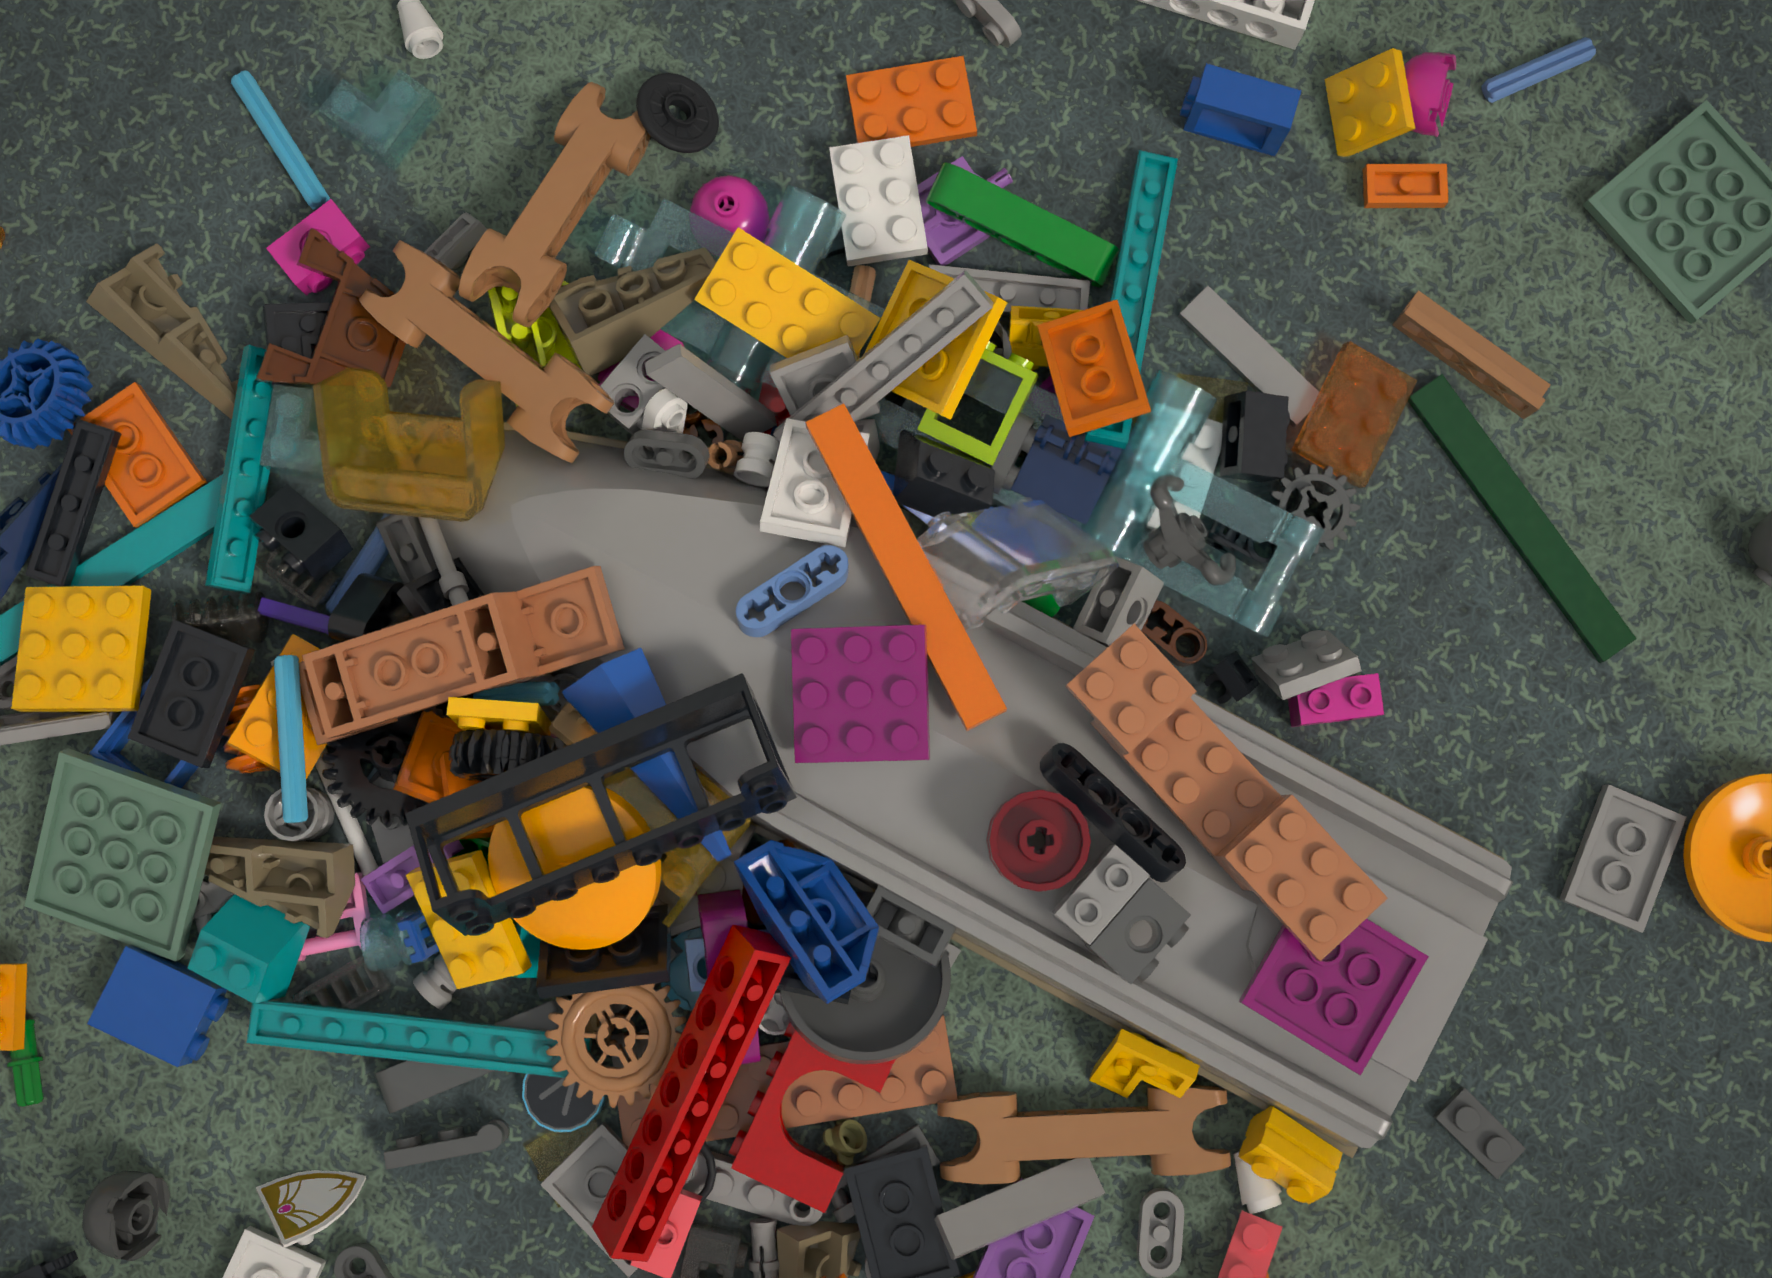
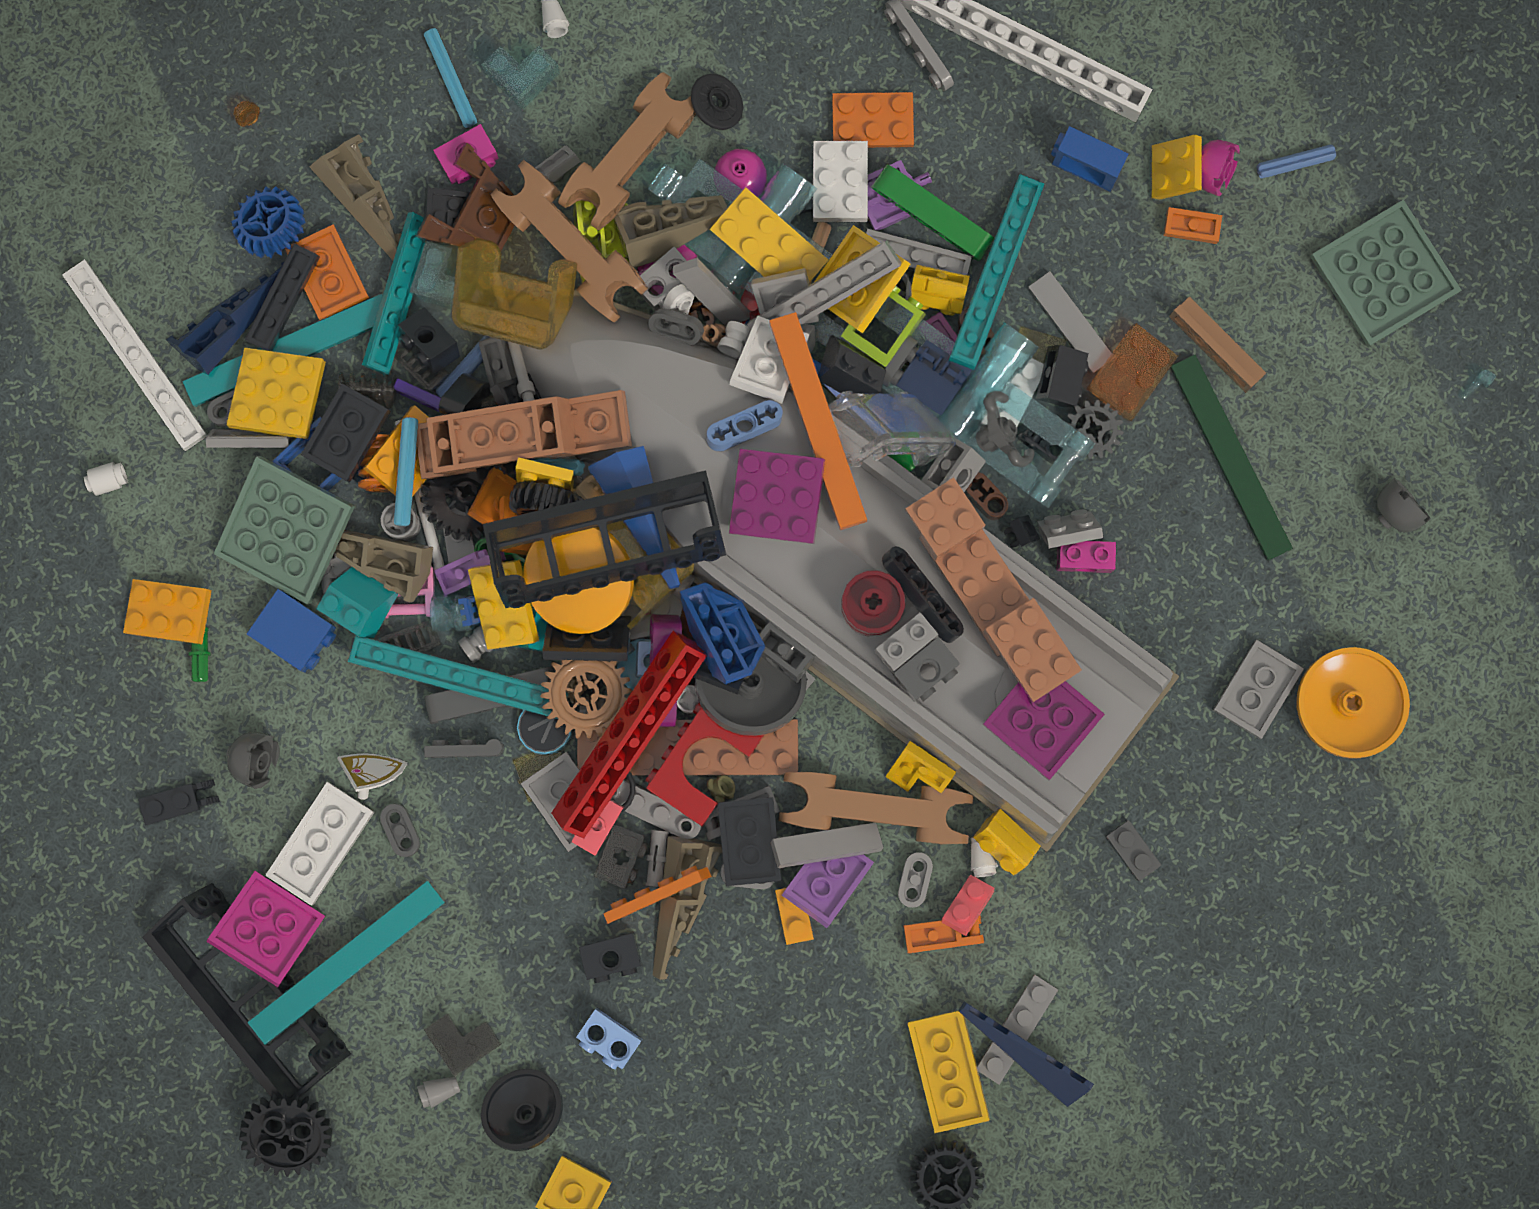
camera: 10 degrees right, 0 degrees up
(1093, 368) = (961, 314): orange plate -> none

